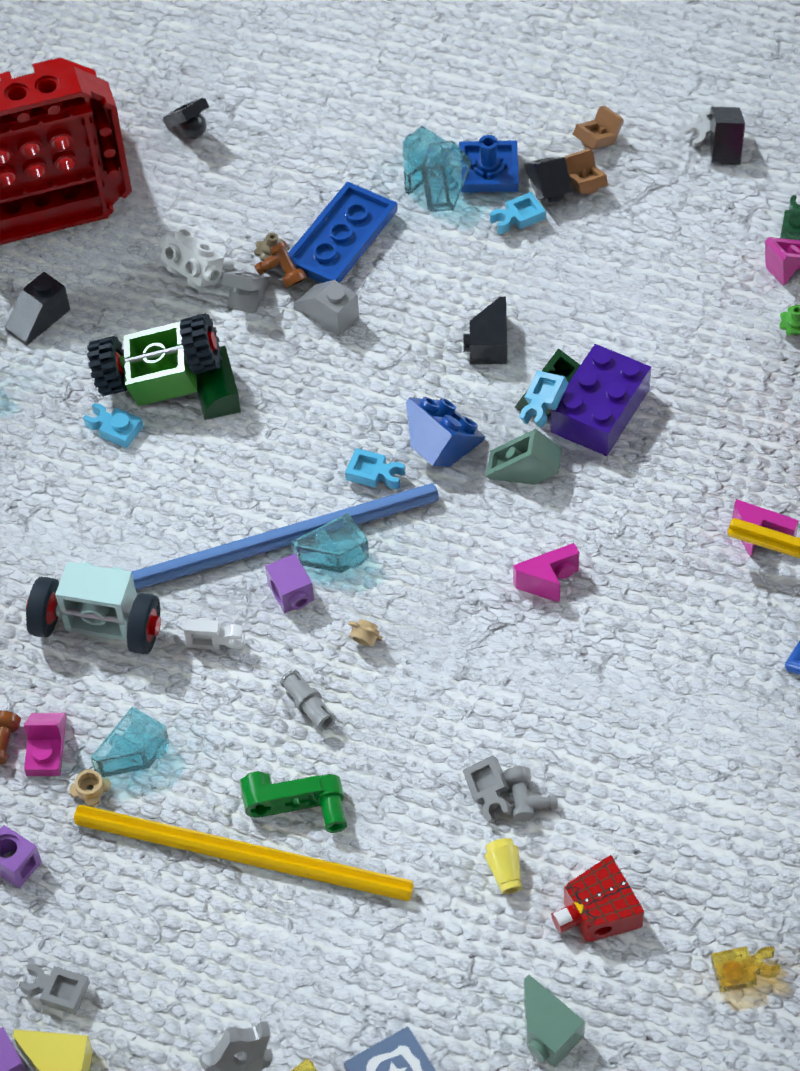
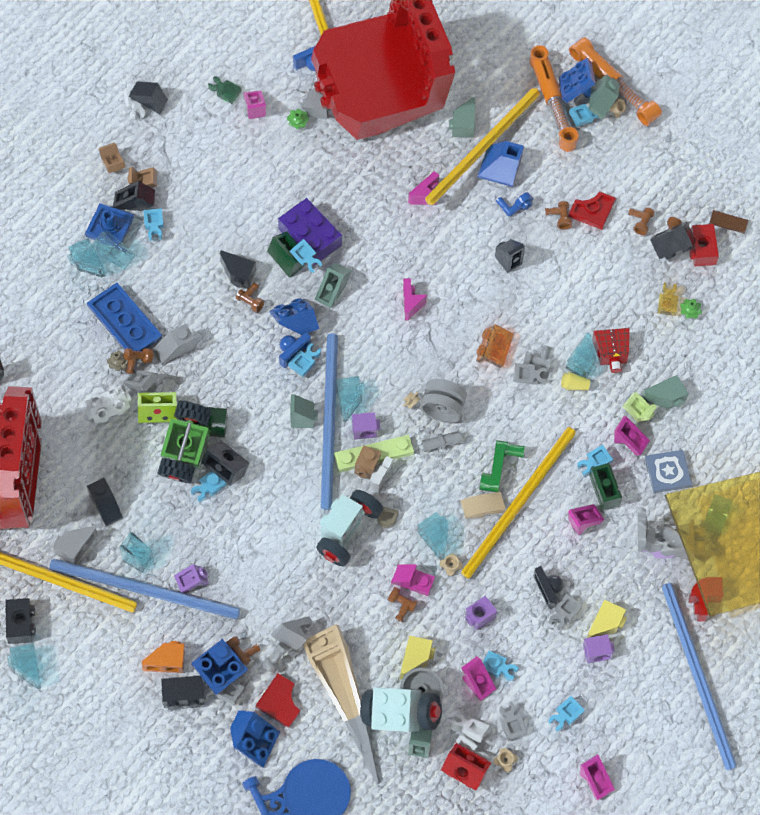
camera: 75 degrees left, 10 degrees up
(93, 943) = (548, 586): none -> black tile
(140, 437) = (225, 462): none -> black brick
(144, 671) = (388, 517): none -> dark tan tile
(207, 296) = (156, 407): none -> lime brick
(213, 798) = (482, 504): none -> tan slope
(225, 604) = (367, 462): none -> medium nougat bracket
(241, 957) = (584, 517): none -> dark pink slope
(246, 609) = (392, 448): none -> yellowish green plate
(273, 487) = (302, 412): none -> sand green slope
(312, 972) = (605, 486): none -> dark green brick
(366, 949) = (595, 458): none -> medium azure plate
(372, 669) = (443, 400): none -> light grey wheel
(387, 441) = (291, 347): none -> blue tile
(431, 984) = (631, 436): none -> dark pink slope
(442, 378) = (256, 304): none -> dark orange piece
(497, 984) = (639, 408): none -> yellowish green bracket
(519, 721) = (494, 345): none -> clear orange bracket
(557, 861) = (583, 358): none -> clear light blue slope
(700, 683) = (510, 254): none -> slope
(744, 1012) = (691, 308): none -> bright green plant

